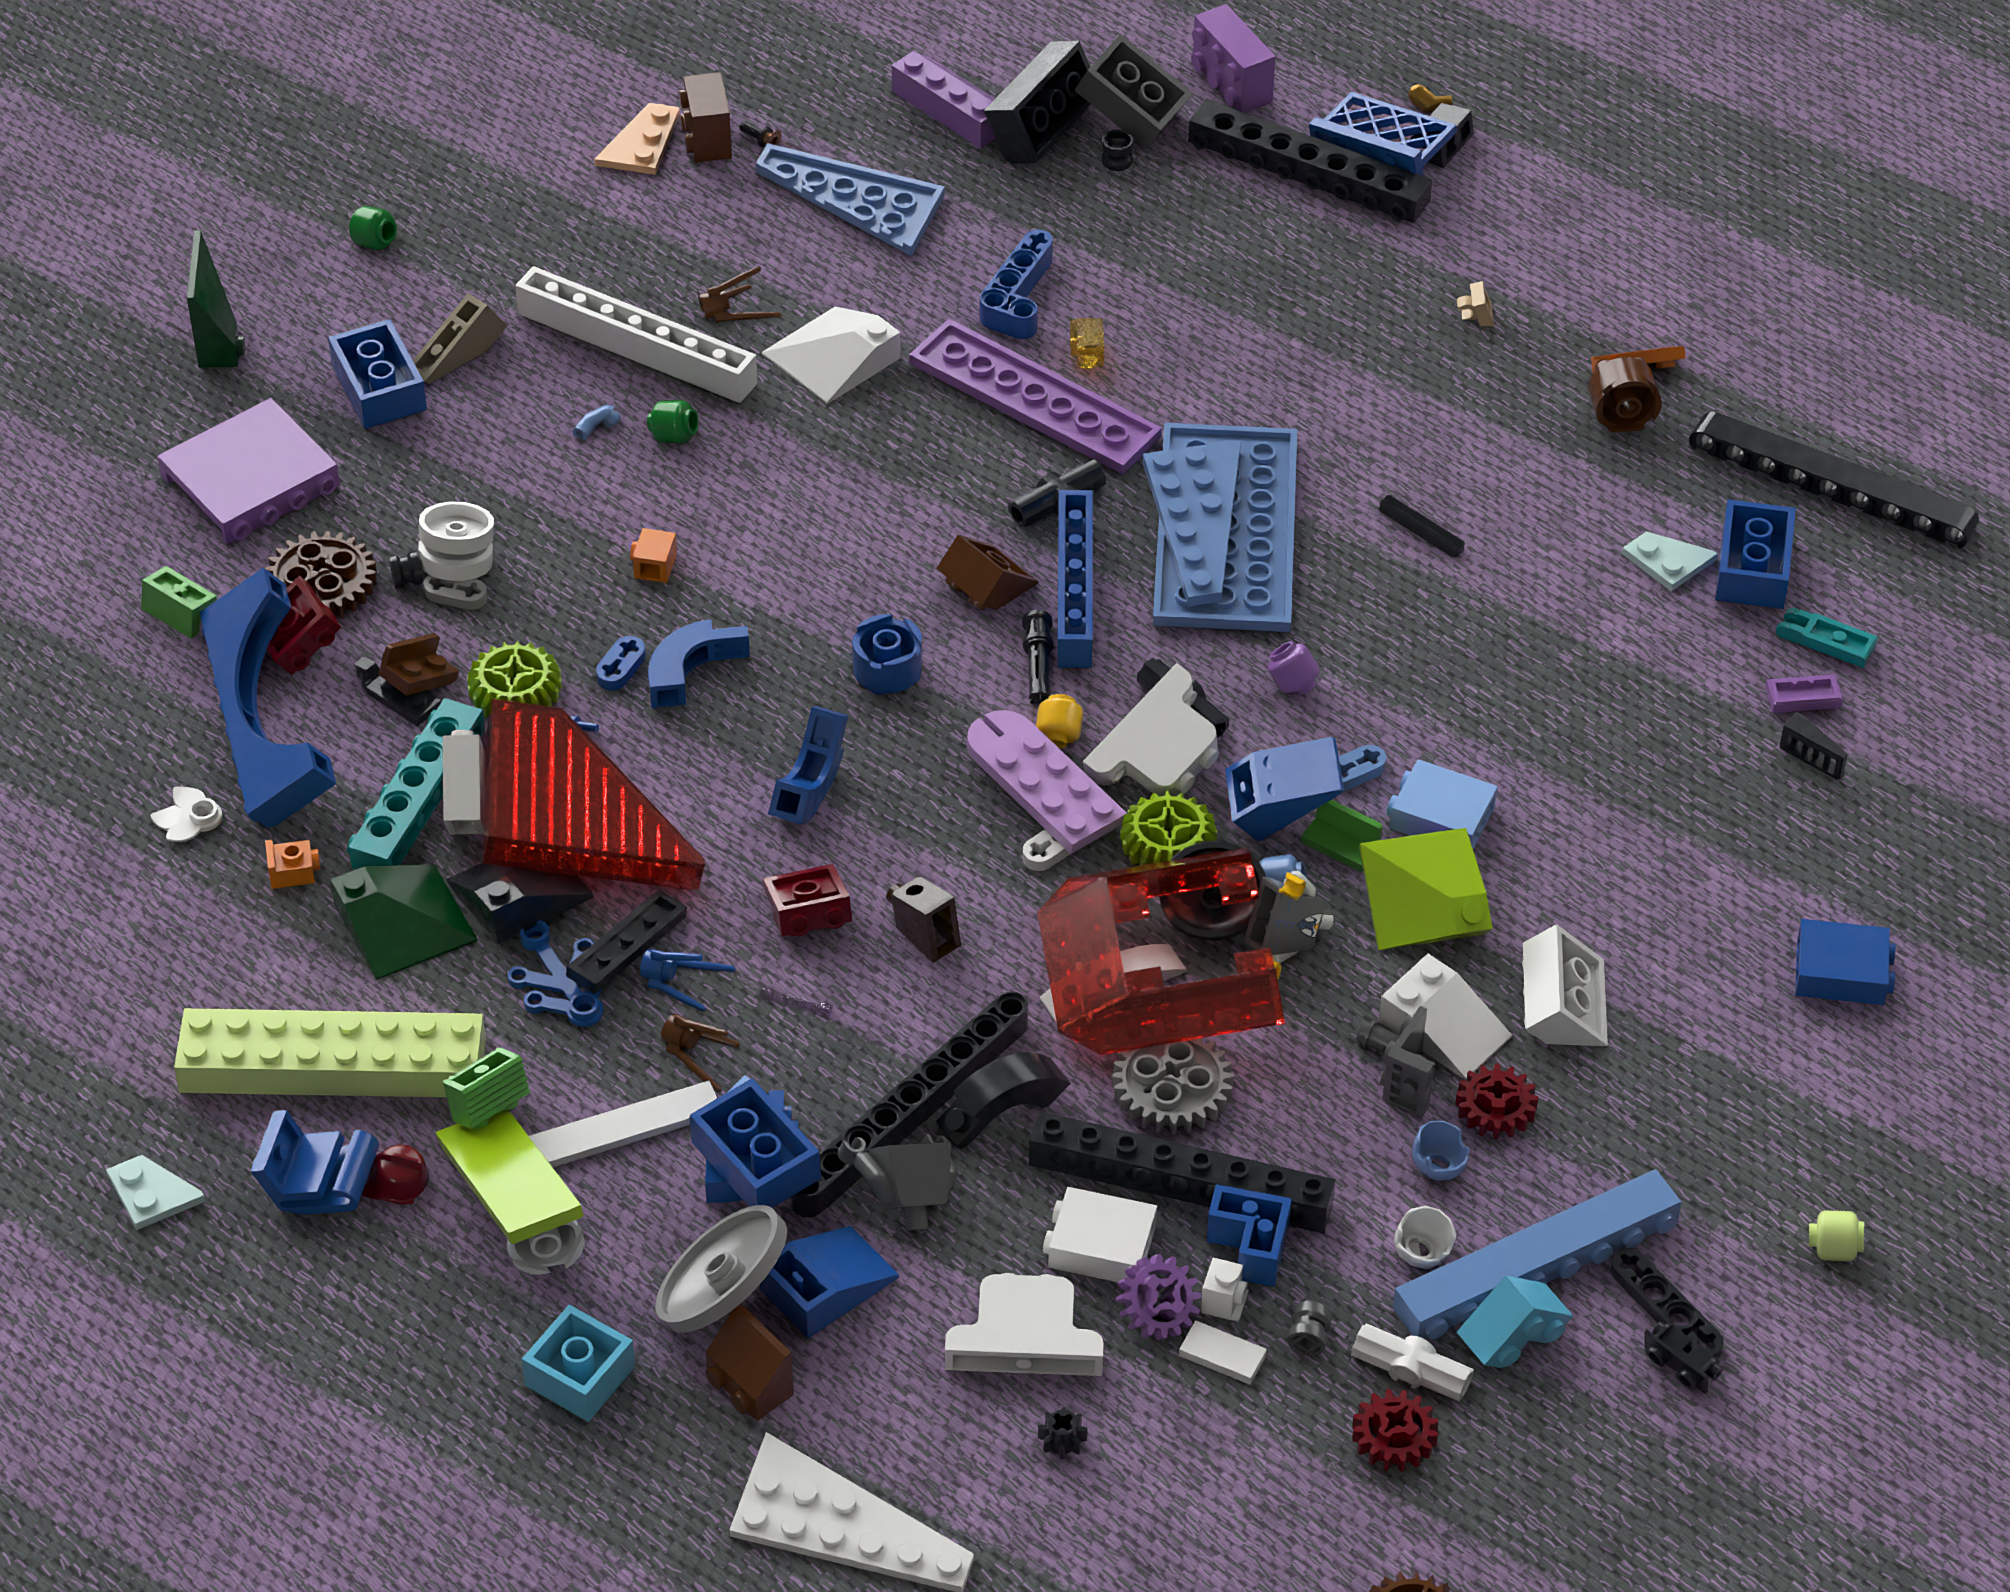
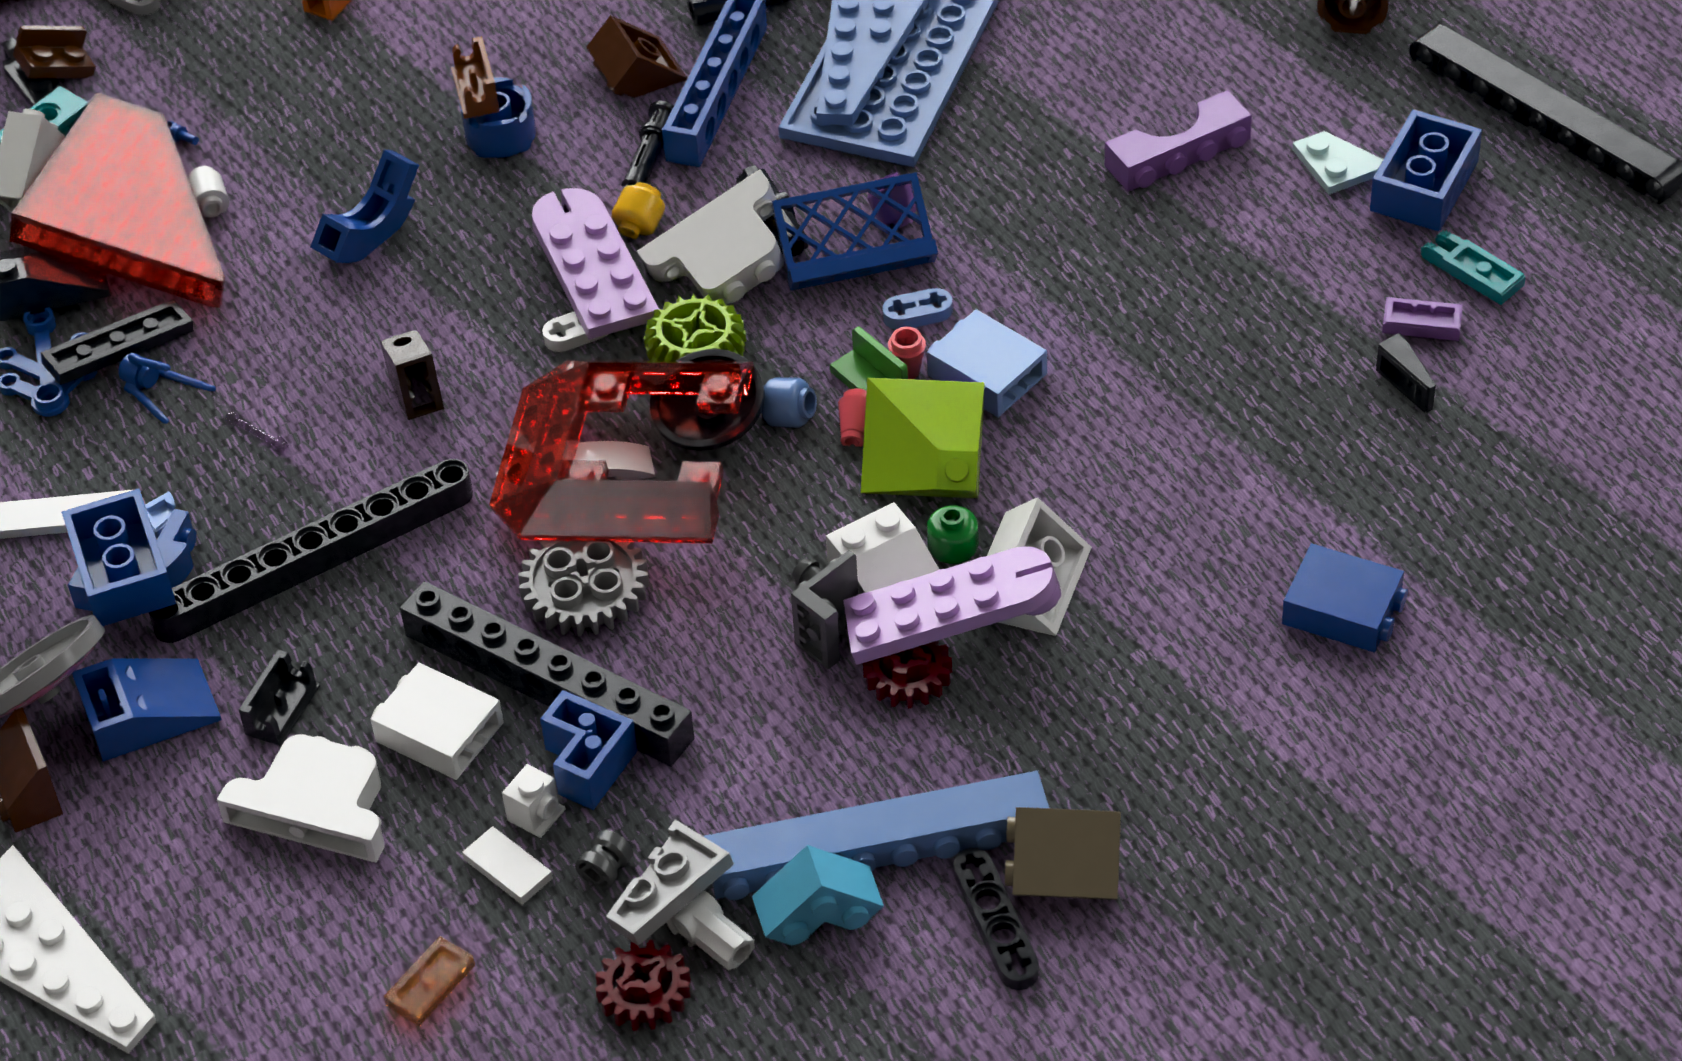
camera: 20 degrees right, 0 degrees up
(514, 675) = (142, 78): lime gear -> none
(615, 659) = (249, 84): blue beam -> none
(640, 774) = (209, 191): none -> white brick
(685, 1033) = (132, 441): reddish brown plant -> none
(686, 650) = (307, 84): arch -> none
(808, 900) = (310, 336): dark red plate -> none
(864, 622) = (474, 81): none -> dark orange hinge
(906, 1175) = (266, 617): dark grey torso -> none
(948, 1248) = (278, 699): none -> black hinge
(998, 1087) = (402, 548): black arch -> none
(1062, 1432) = (301, 910): black gear -> none
(1142, 1293) = (449, 777): medium lavender gear -> none
(1205, 1468) = (429, 981): none -> clear orange plate
(1282, 785) = (820, 309): slope -> none
(1287, 917) = (765, 443): dark grey torso -> none
(1296, 727) = (860, 262): none -> blue fence
(1346, 879) = (852, 417): none -> coral cone
(1373, 804) = (909, 347): none -> coral cone
(1388, 1334) = (670, 882): none -> light grey wing
(1421, 526) = (1094, 88): black axle -> none
(1427, 1227) = (763, 779): white hair -> none
(1441, 1142) = (822, 695): medium blue hair -> none
(1486, 971) = (952, 534): none -> green head
(1498, 587) = (1142, 158): none -> medium lavender arch
(1521, 1035) = (950, 602): none -> lavender plate
(1667, 1347) = (973, 963): black hinge -> none
(1710, 1236) = (1064, 853): none -> dark tan brick
(1837, 1235) = (1210, 883): yellowish green head -> none

